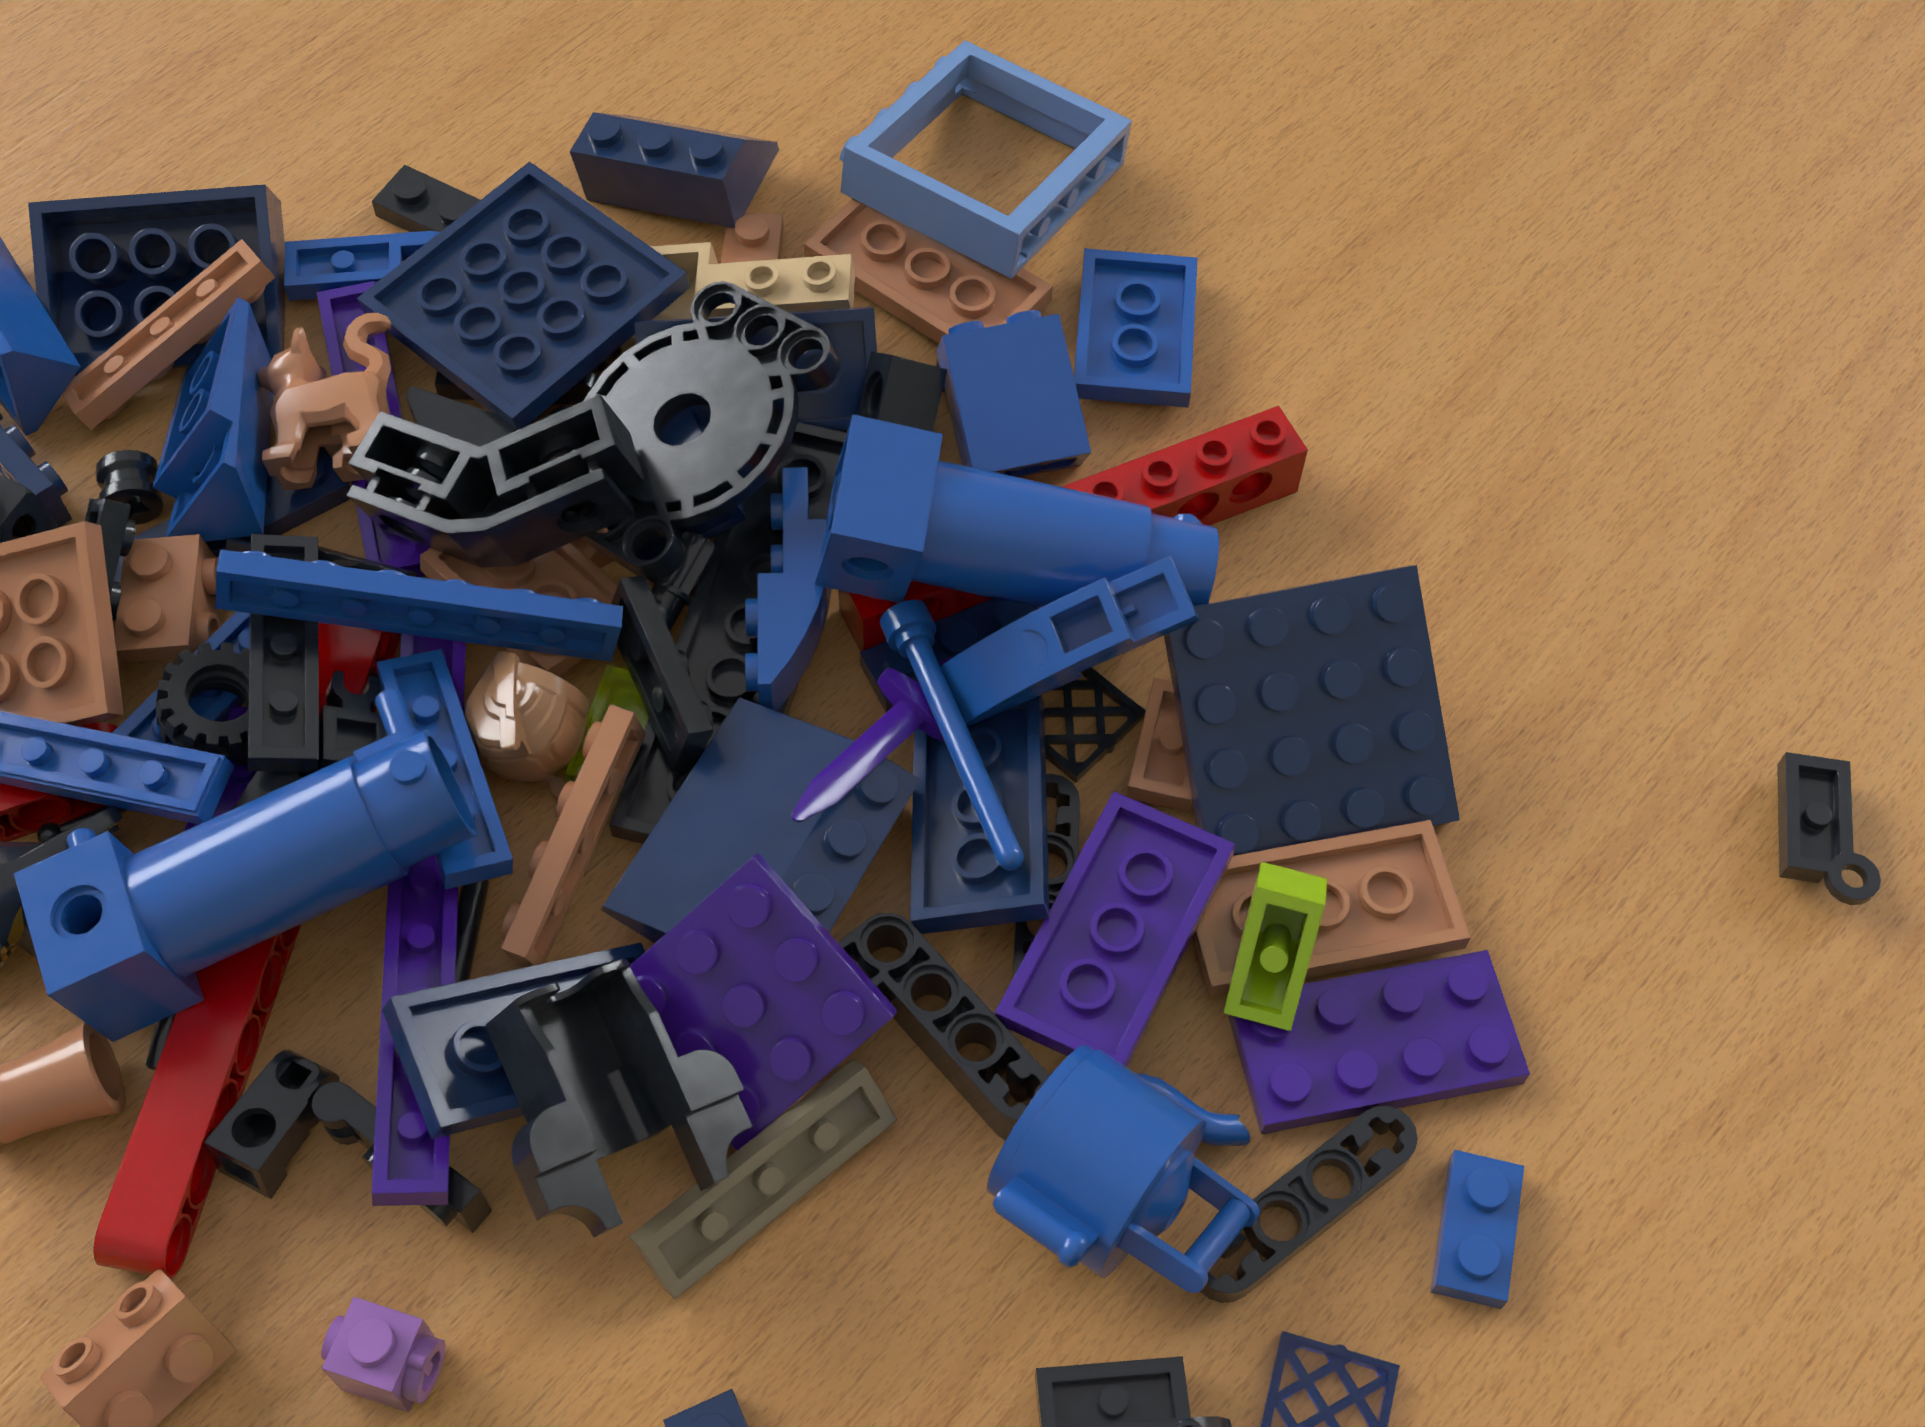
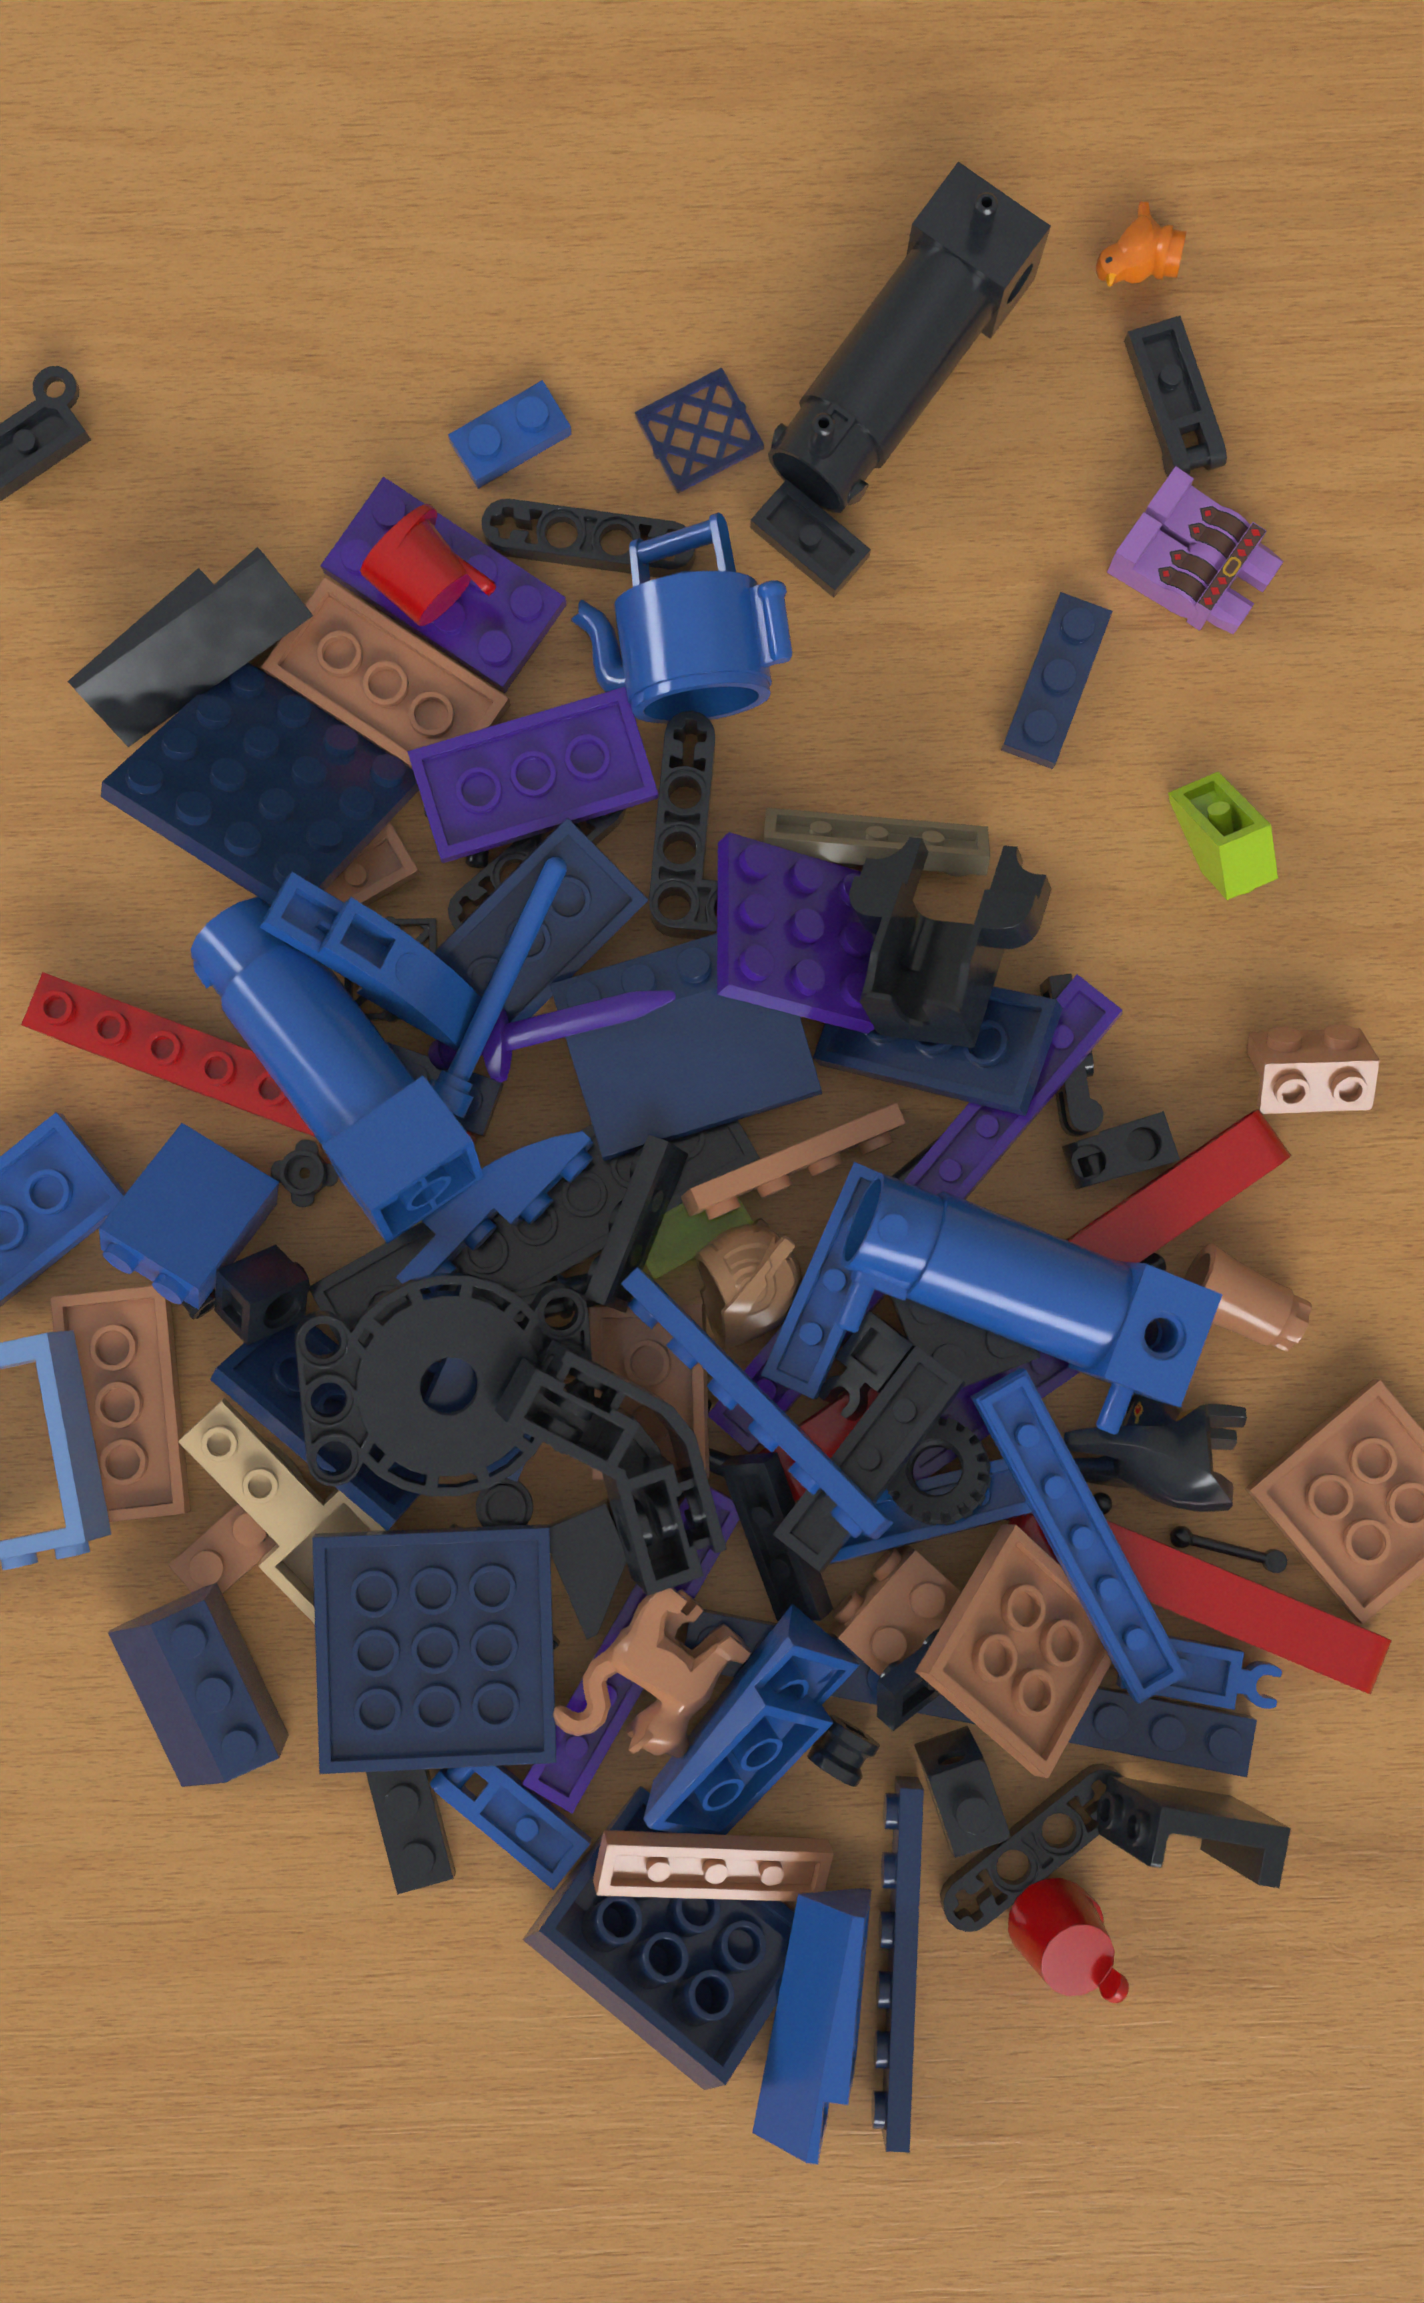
camera: 135 degrees left, 25 degrees up
(382, 1355) = (1177, 939): medium lavender brick -> none
(1276, 946) = (448, 671): lime slope -> none
(1395, 995) = (419, 568): none -> red hat
(1493, 768) = (189, 645): none -> black slope

